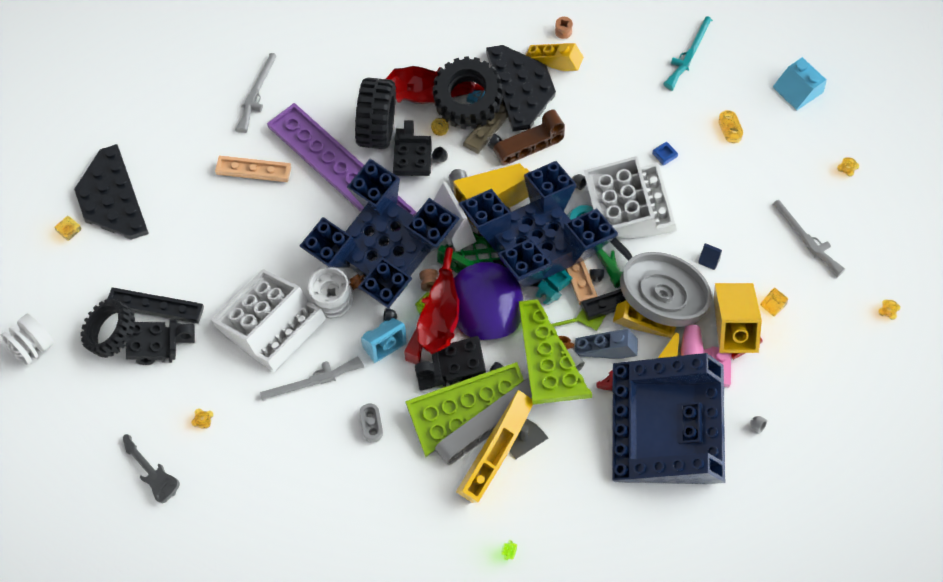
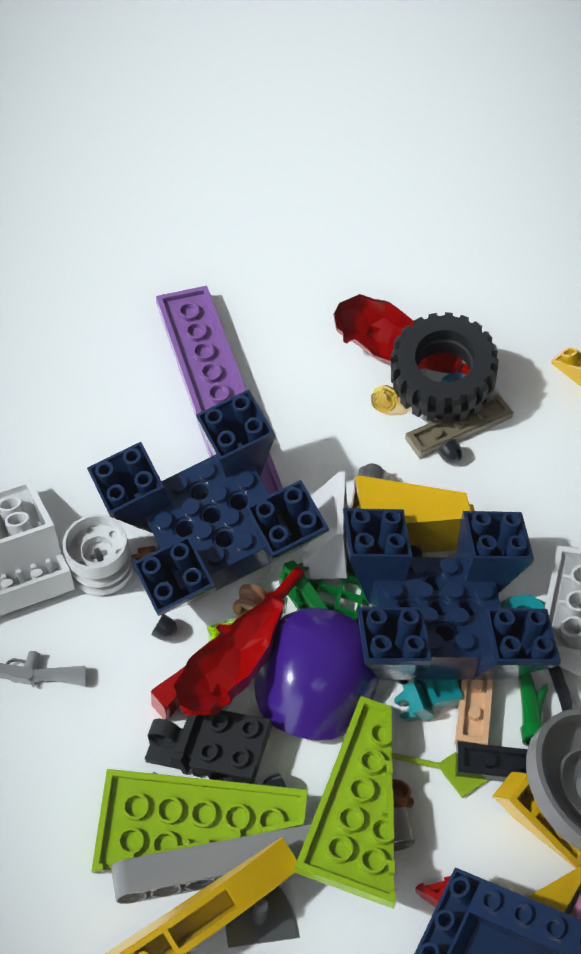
camera: 20 degrees right, 5 degrees down
(250, 103) = (155, 260): light grey piece -> none
(253, 168) = (103, 345): light nougat plate -> none
(371, 423) = (42, 778): light grey plate -> none
(375, 113) = (299, 338): black tyre -> none
(384, 339) = (134, 659): medium azure slope -> none
(411, 152) = (325, 415): black plate -> none
(440, 154) = (364, 435): black hinge -> none
(524, 83) = (530, 395): black plate -> none
(532, 140) = (504, 471): reddish brown beam -> none
(580, 181) = (544, 560): dark grey hinge -> none
(594, 273) = (508, 709): black hinge -> none
(610, 345) = (467, 831): sand blue slope -> none

